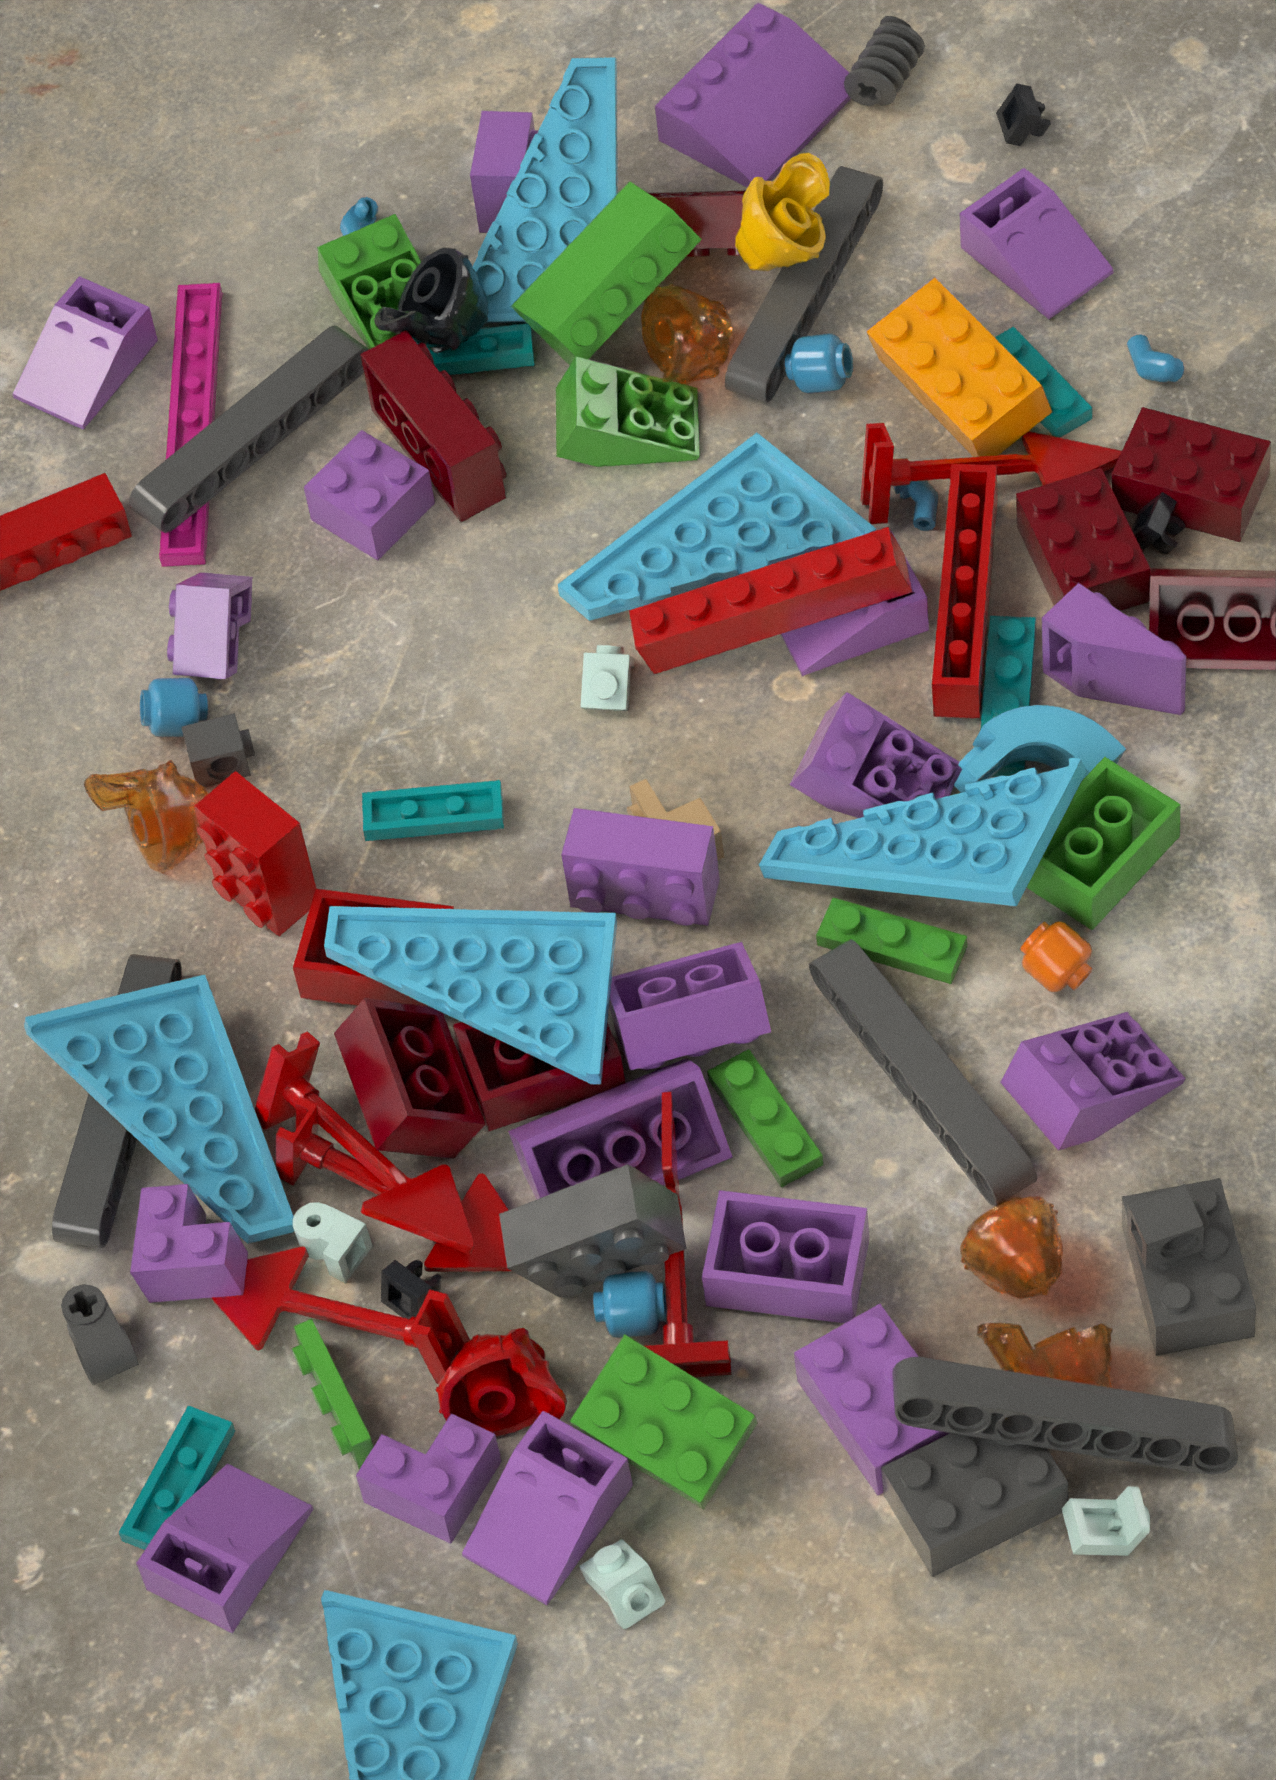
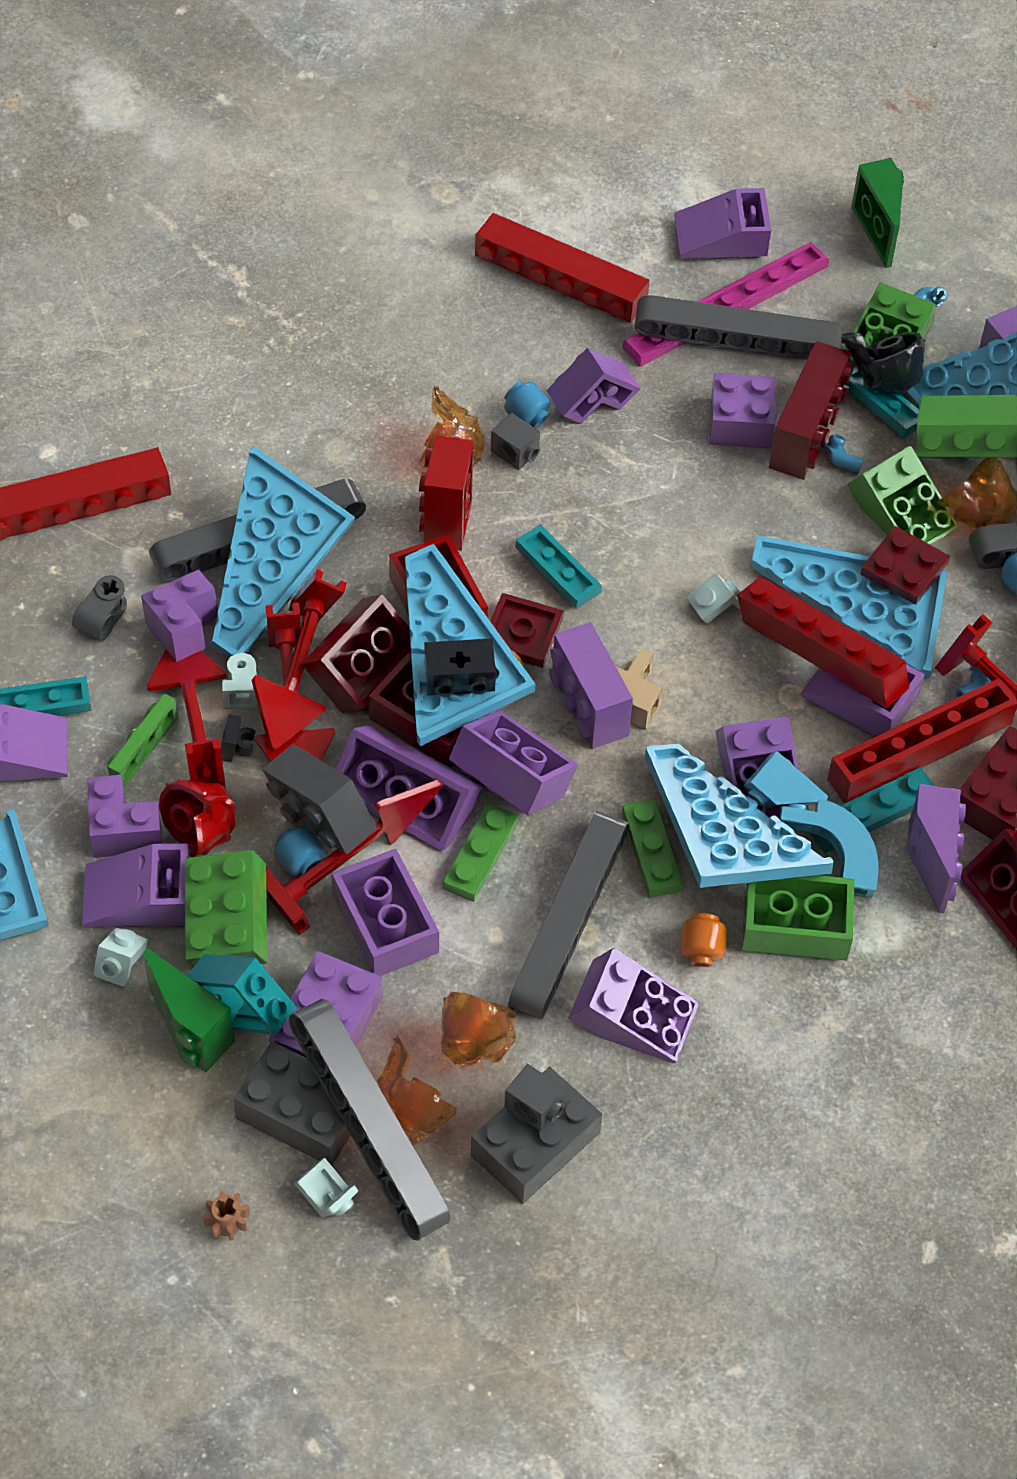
camera: 45 degrees right, 0 degrees up
(205, 183) = (878, 205): none -> green slope
(495, 882) = (527, 627): none -> dark red plate
(518, 440) = (839, 457): none -> dark azure arm
(542, 972) = (459, 667): none -> black brick
(720, 465) = (905, 565): none -> dark red plate
(767, 1542) = (193, 1016): none -> green slope
(800, 1462) = (247, 989): none -> teal window
(925, 754) = (781, 784): none -> medium azure slope
(1055, 1657) = (229, 1224): none -> nougat gear

